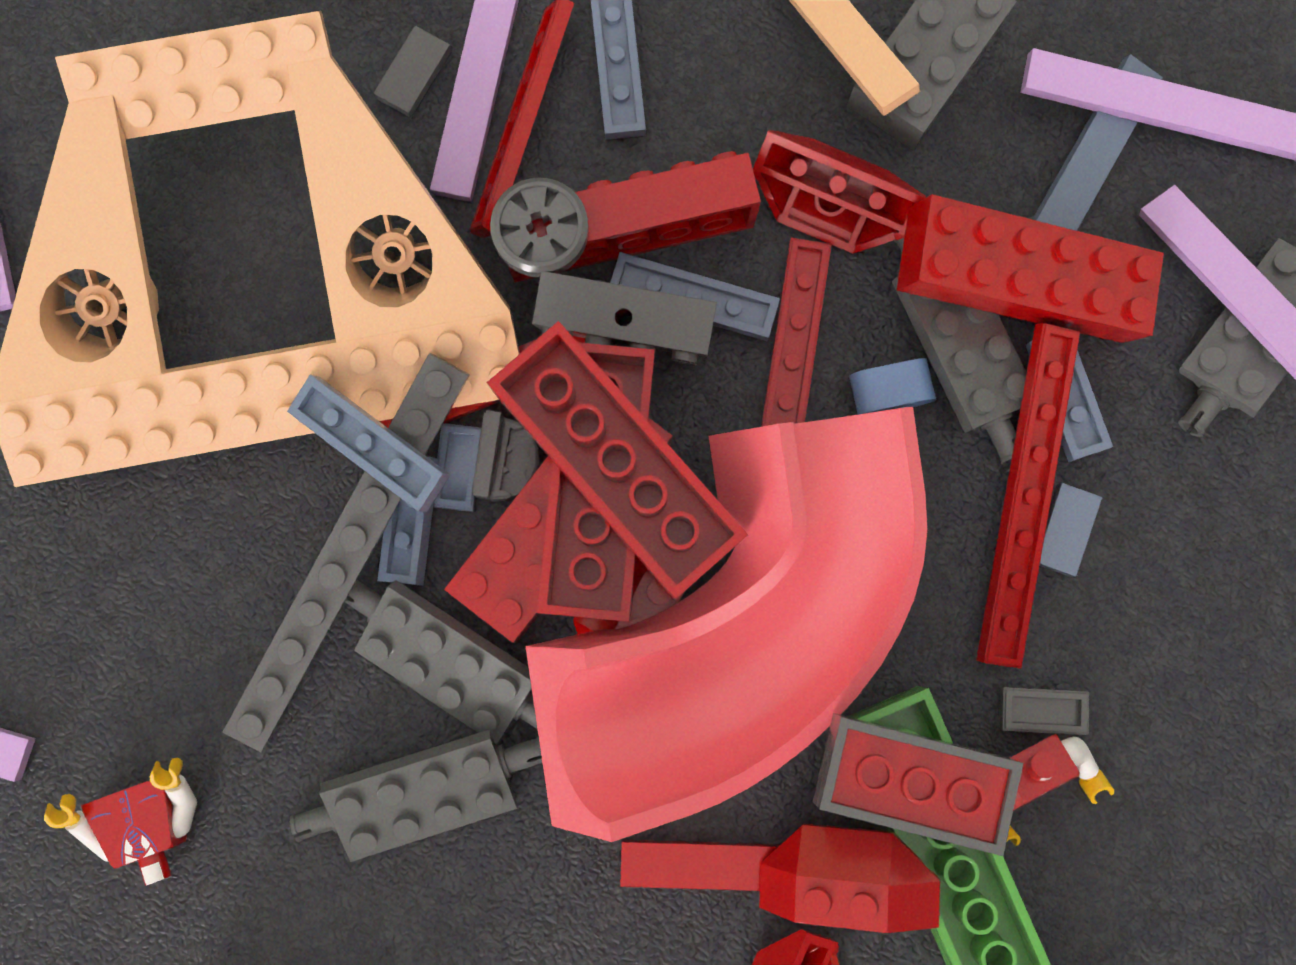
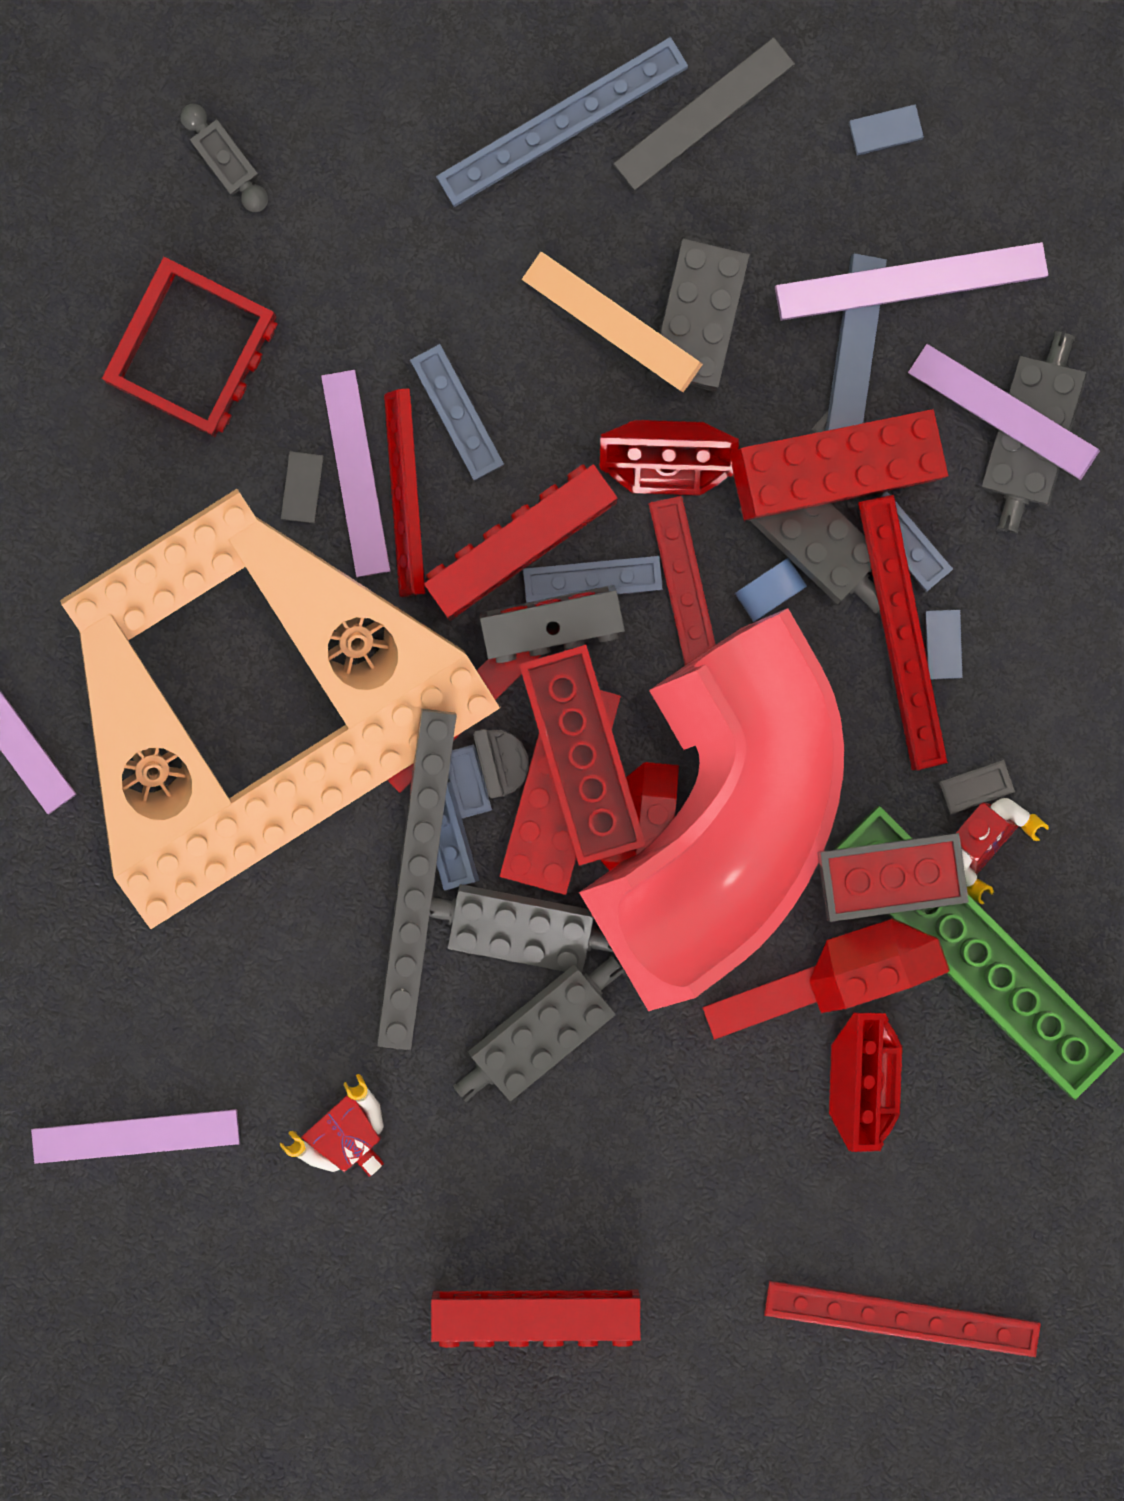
camera: 25 degrees left, 5 degrees up
(368, 443) = (406, 793): sand blue plate -> none
(513, 221) = (442, 585): dark grey wheel -> none
(616, 460) = (594, 738): red brick -> none

